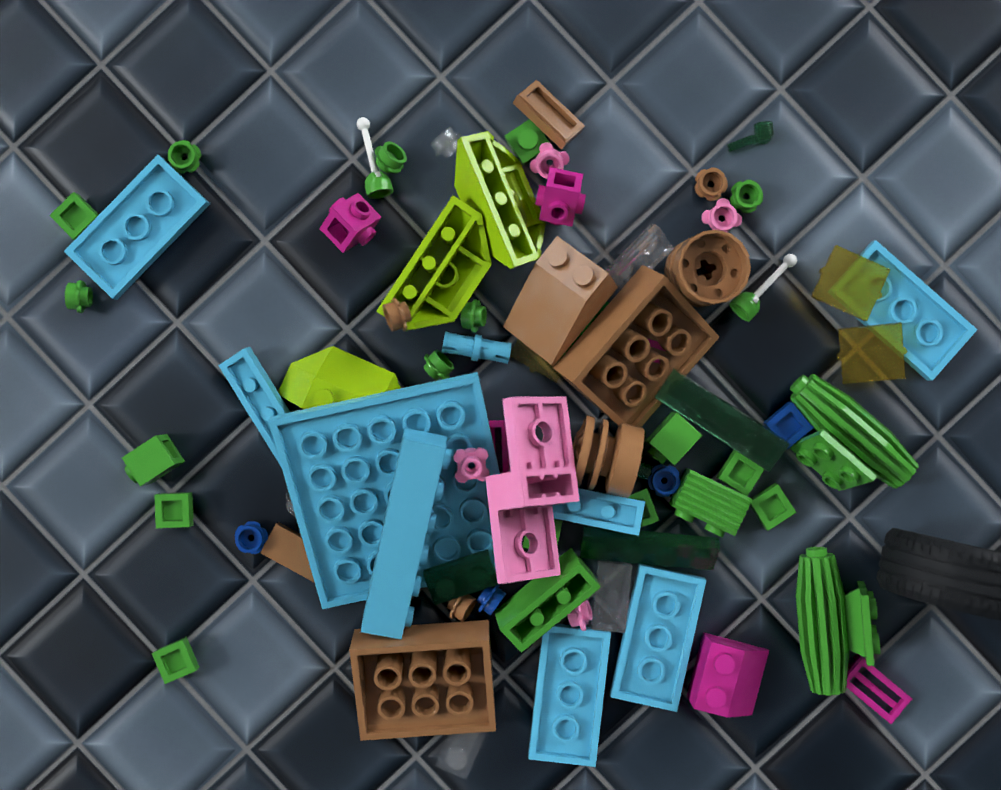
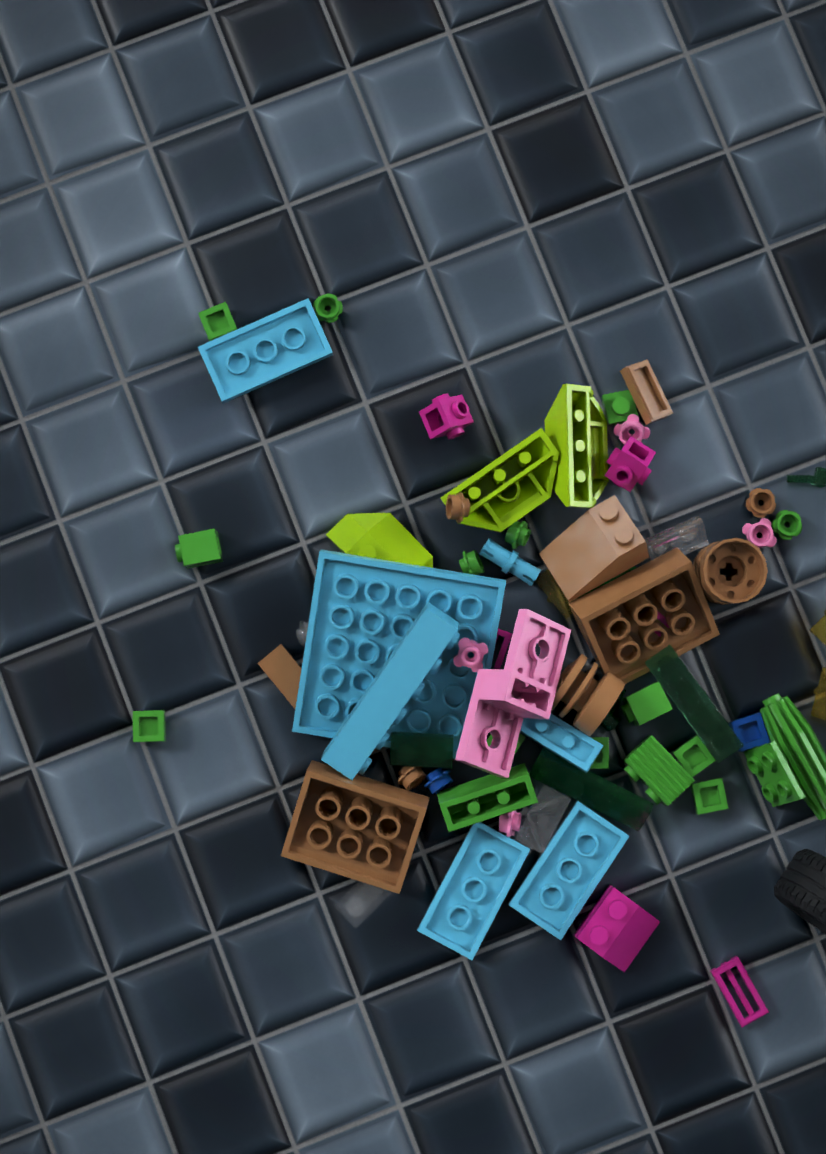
camera: 25 degrees right, 5 degrees down
(78, 296) = (193, 388): bright green plate -> none
(174, 510) = (199, 597): bright green plate -> none
(243, 542) = (250, 640): blue plate -> none
(255, 392) = (309, 533): medium azure plate -> none
(376, 183) = (480, 392): hinge -> none
(390, 157) = (499, 376): bright green plate -> none
(446, 143) = (551, 382): clear plate -> none
(670, 486) = (625, 729): blue plate -> none
(747, 303) = (754, 616): hinge -> none
(832, 622) = (723, 914): bright green plate -> none

